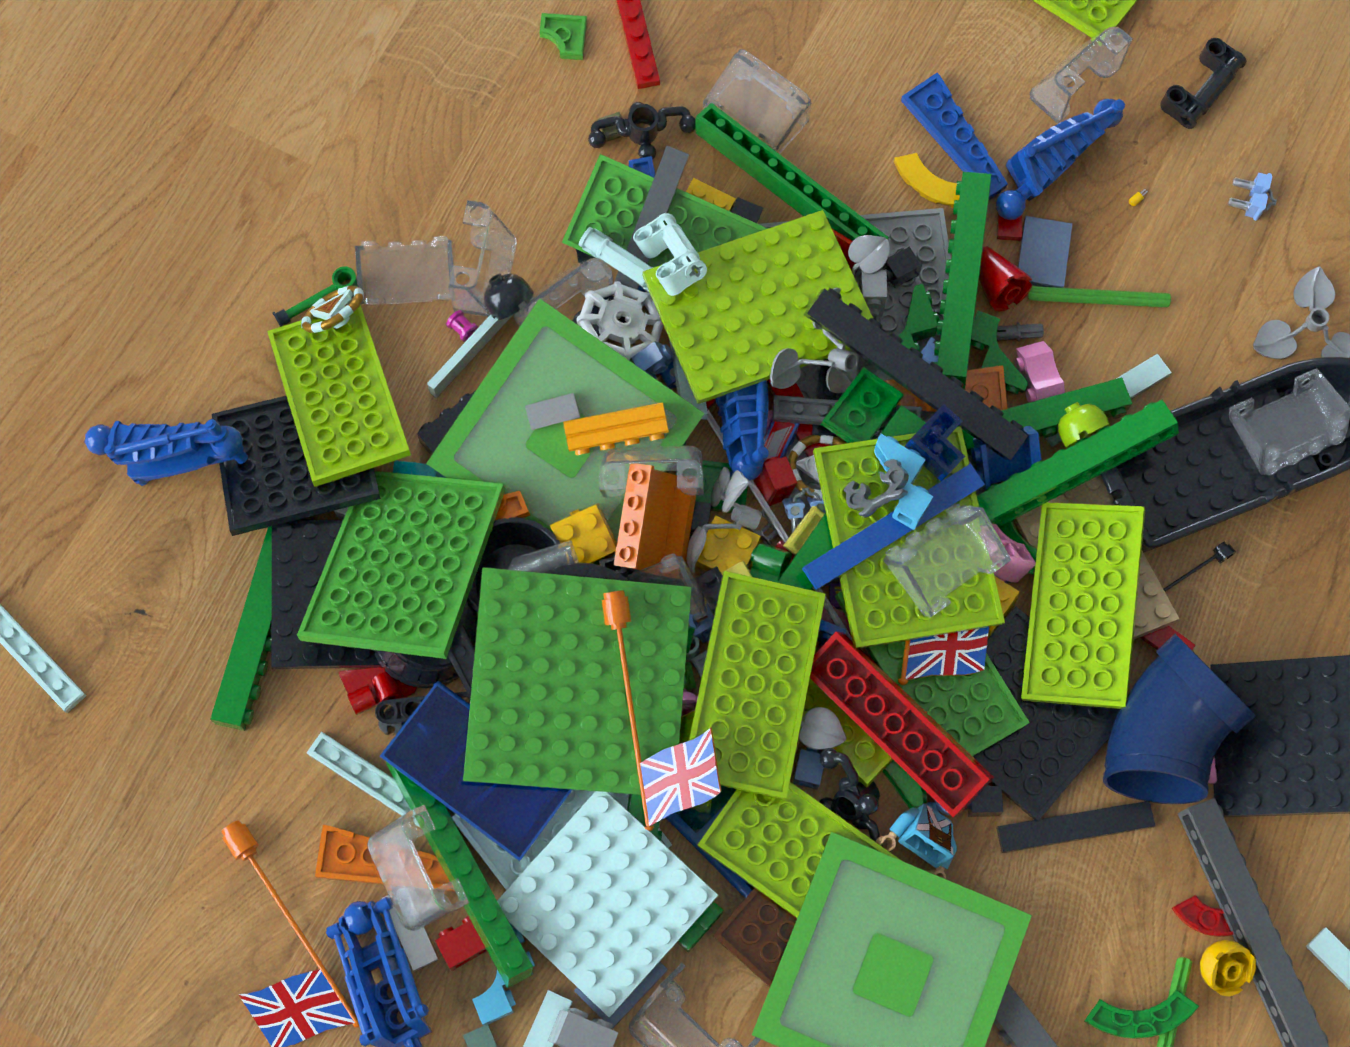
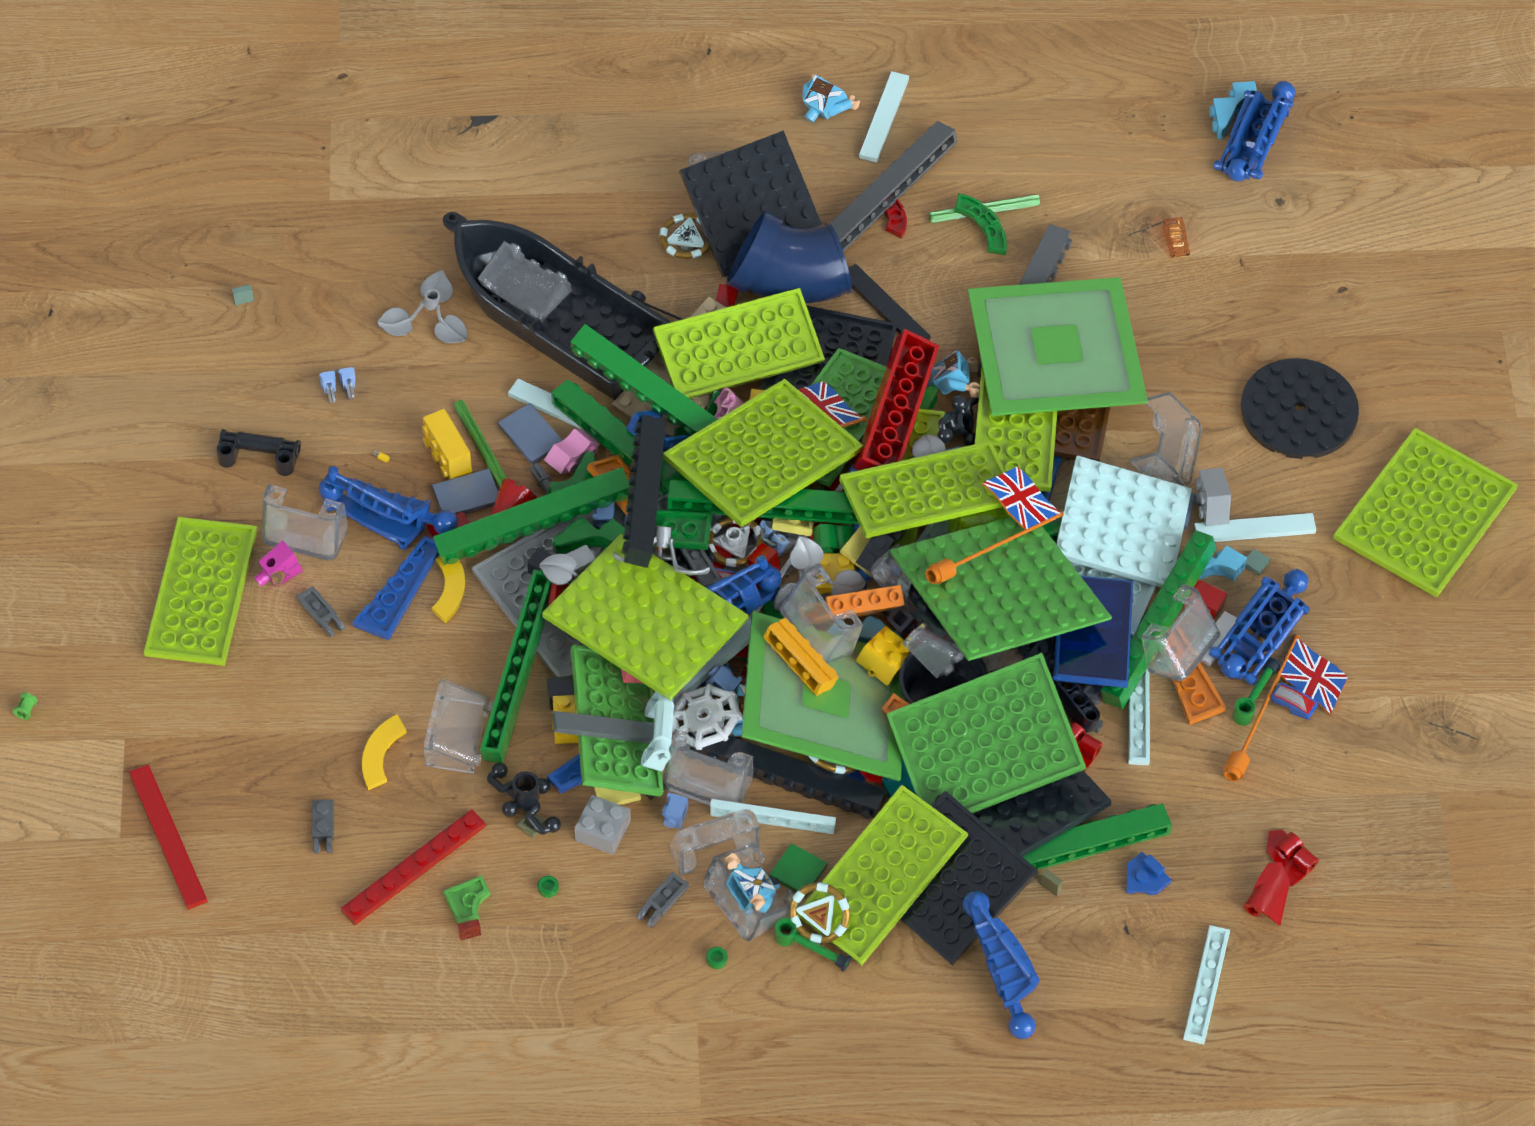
camera: 120 degrees left, 15 degrees down
(71, 775) = (1269, 893): none -> red panel
(104, 831) = (1290, 851): none -> red panel
(181, 664) = (1146, 875): none -> blue plate
(233, 562) = (1051, 882): none -> olive tile
(277, 962) = (1297, 701): none -> slope
(333, 961) = (1247, 704): none -> green piece
(364, 213) = (716, 957): none -> green tile
(404, 269) = (750, 885): none -> torso
(408, 334) = (798, 868): none -> green tile
(453, 195) = (663, 898): none -> dark grey hinge
(458, 318) = (767, 825): dark pink bush -> none
(505, 295) = (738, 790): black cylinder -> none
(529, 16) = (469, 929): none -> clear red tile
(535, 107) = (548, 886): none -> green tile
(543, 253) = (675, 810): none -> medium blue brick
(552, 411) = (815, 703): light grey tile -> none
(564, 179) = (602, 824): none -> light grey brick
(679, 271) = (637, 678): light aqua piece -> none
(778, 31) = (376, 748): none -> yellow tile
(858, 498) = (763, 478): dark grey helmet -> none
(889, 530) = (765, 456): blue tile -> none
(917, 500) = (726, 458): medium azure arch -> none
(933, 444) = (690, 454): clear blue brick -> none
(946, 556) = (763, 424): clear windscreen -> none
(969, 54) = (319, 610): none -> dark grey hinge
(1041, 26) = (278, 566): none -> dark pink torso
(1081, 423) = (610, 393): lime cylinder -> none
(1090, 351) = (529, 433): none -> sand blue tile
(1110, 250) = (446, 445): none -> yellow brick
(1227, 967) = (921, 191): yellow cylinder -> none
(1287, 643) = (685, 236): none -> piece

